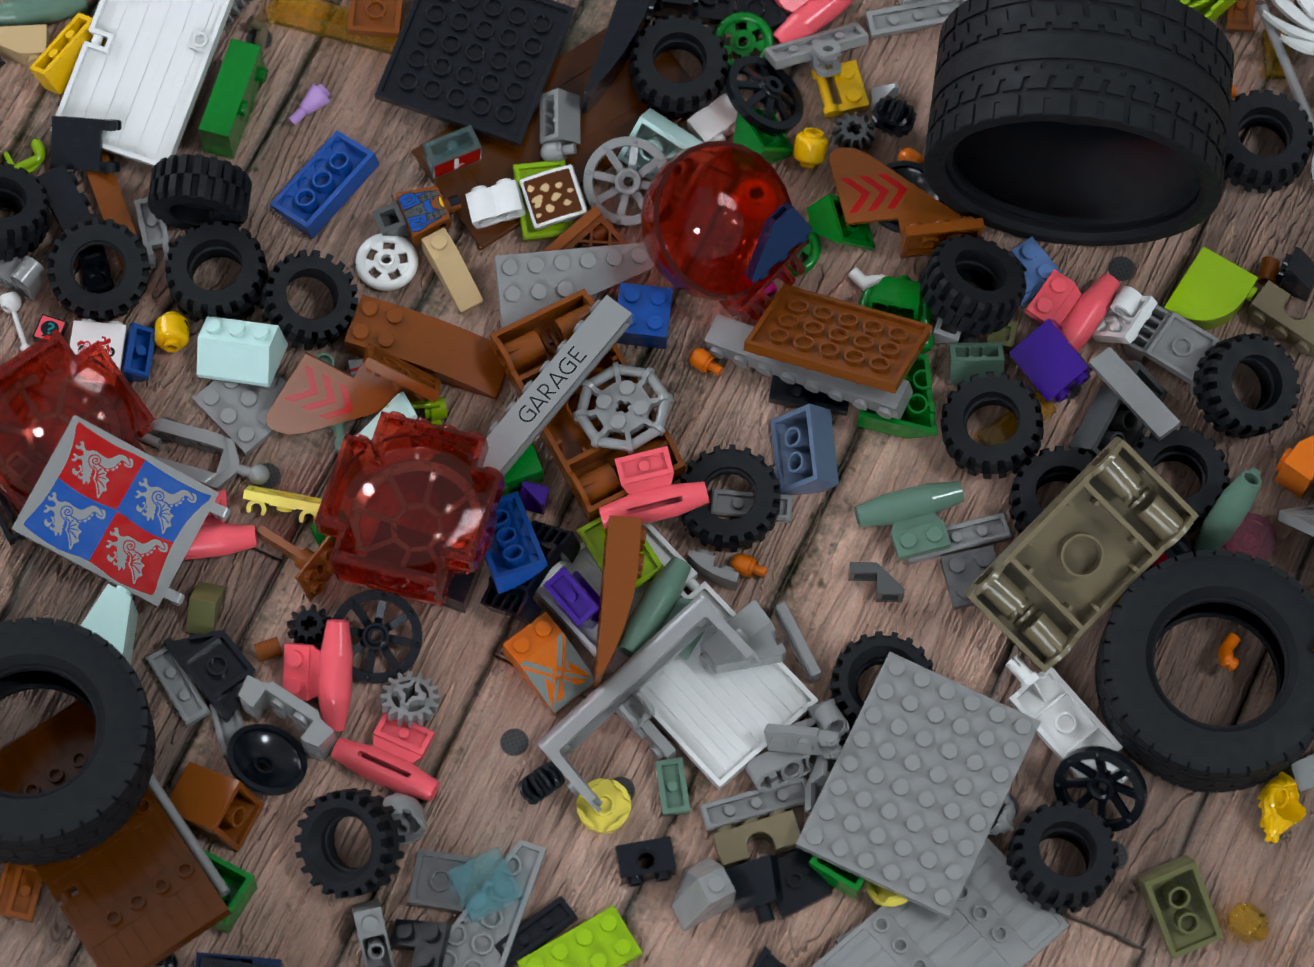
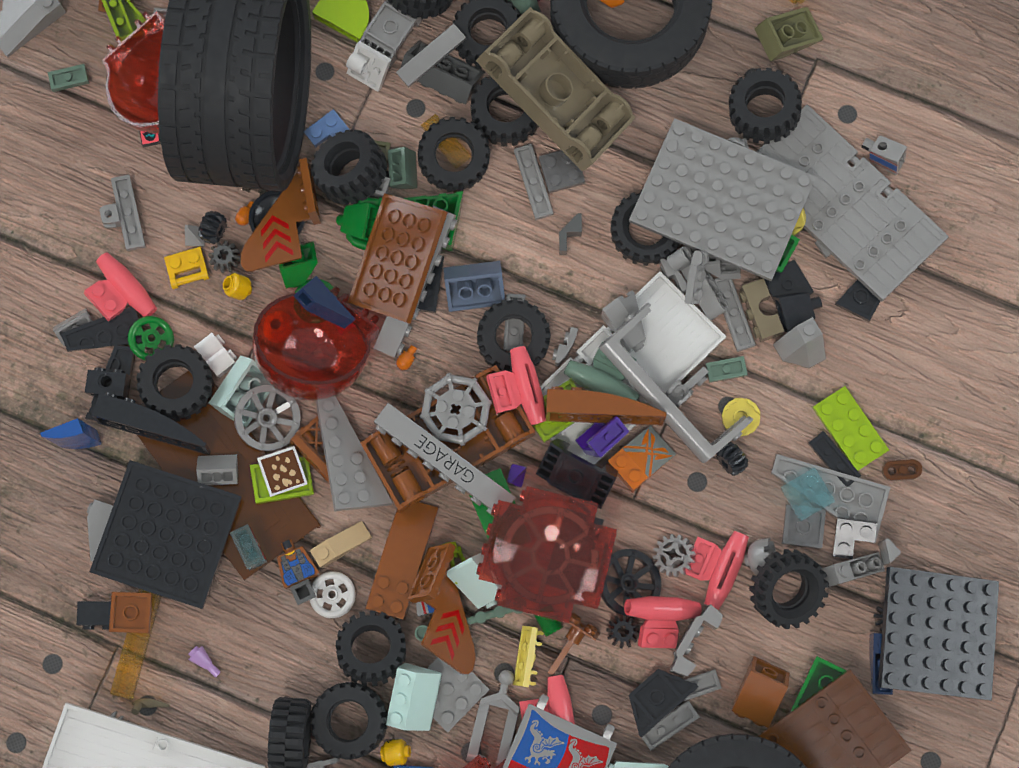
camera: 85 degrees left, 10 degrees up
(188, 837) = (792, 705): light grey piece -> none
(204, 608) = (610, 710): olive slope -> none
(232, 98) = (203, 719): green brick -> none
(266, 759) = (719, 648): black dish -> none
(268, 649) = (639, 661): dark orange hinge -> none
(325, 183) = (269, 645): blue slope -> none
(495, 203) = (287, 513): white brick -> none
(515, 550) = (569, 479): blue slope -> none
(557, 151) = (244, 470): light grey cylinder -> none
(650, 314) = (370, 400): blue brick -> none
(658, 850) = (779, 396): black brick -> none
(747, 566) = (561, 323): orange cylinder -> none
(767, 90) = (195, 316): black wheel -> none
(770, 146) = (230, 323): green slope -> none
(797, 643) = (617, 287): light grey tile -> none
(818, 48) = (156, 281): light grey plate -> none
(863, 281) = (342, 245): white arm -> none
(914, 516) = (521, 209): sand green plate -> none
(1051, 362) = (403, 115): dark purple panel -> none
(1063, 715) = (670, 101): white plate -> none
(1074, 312) = (363, 102): coral plate -> none
(1103, 784) = (711, 79): black wheel -> none

